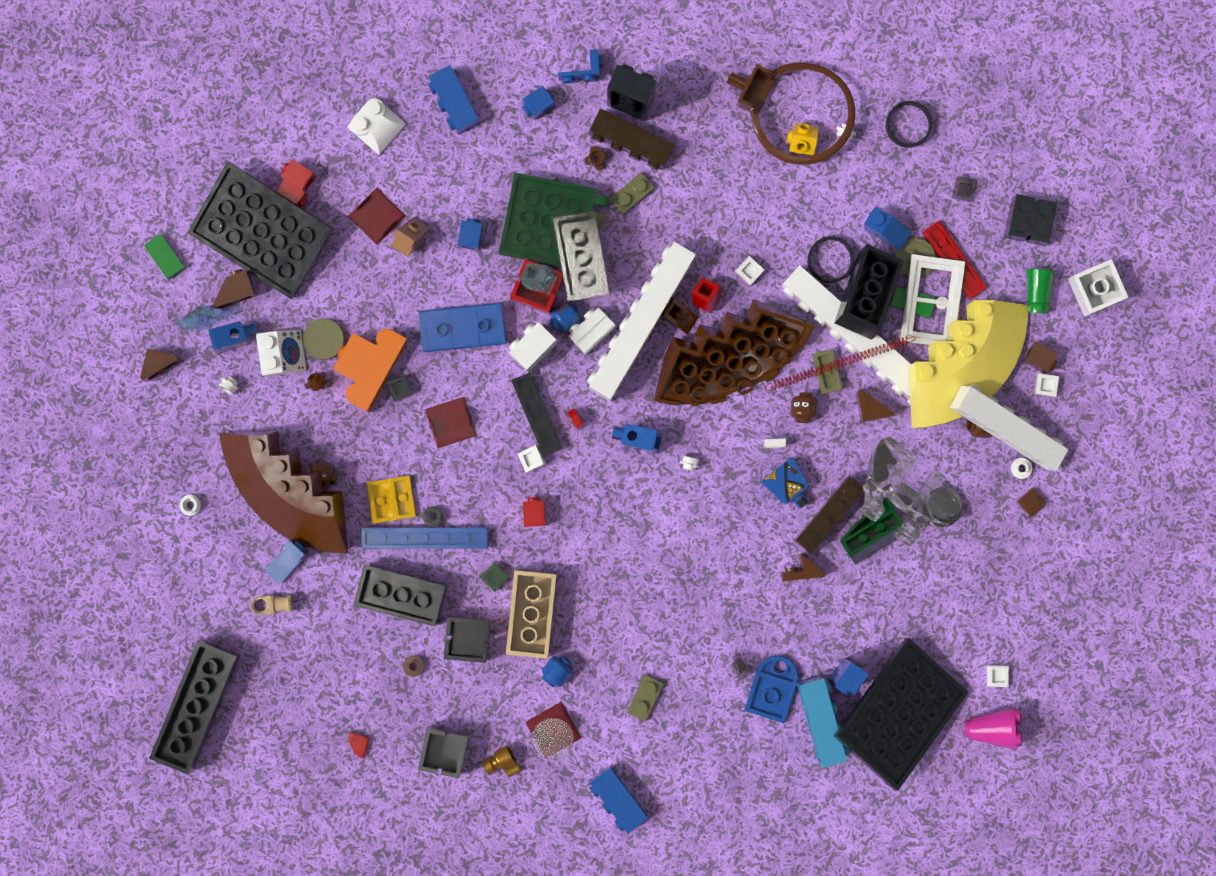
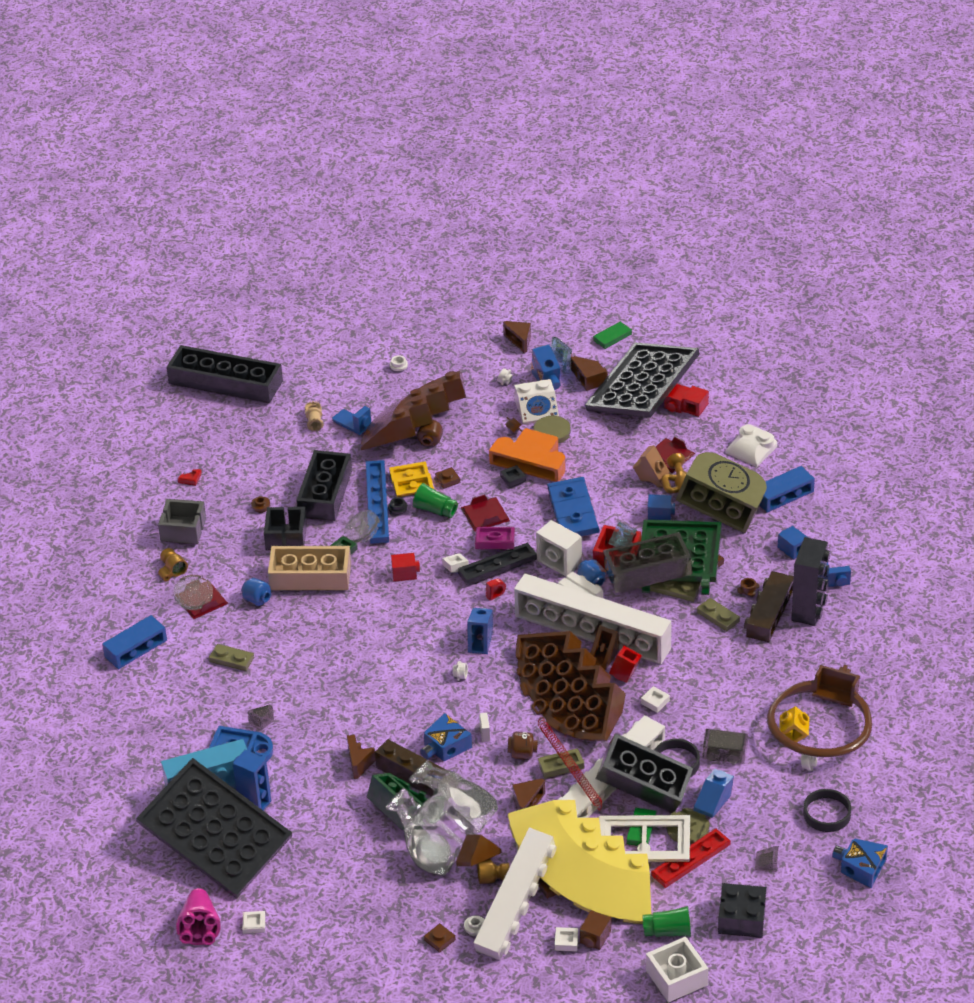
camera: 90 degrees right, 45 degrees down
(391, 459) = (447, 478): none -> reddish brown plate
(429, 205) = (676, 462): none -> pearl gold piece
(436, 475) = (434, 501): none -> green plant
(469, 163) = (722, 490): none -> olive brick
(470, 556) = (362, 526): none -> clear tile
(499, 414) = (495, 538): none -> magenta tile
(821, 210) = (725, 746): none -> clear smoke brick
(944, 461) = (476, 850): none -> reddish brown slope
(960, 451) = (489, 872): none -> pearl gold piece
(977, 101) = (862, 860): none -> blue torso

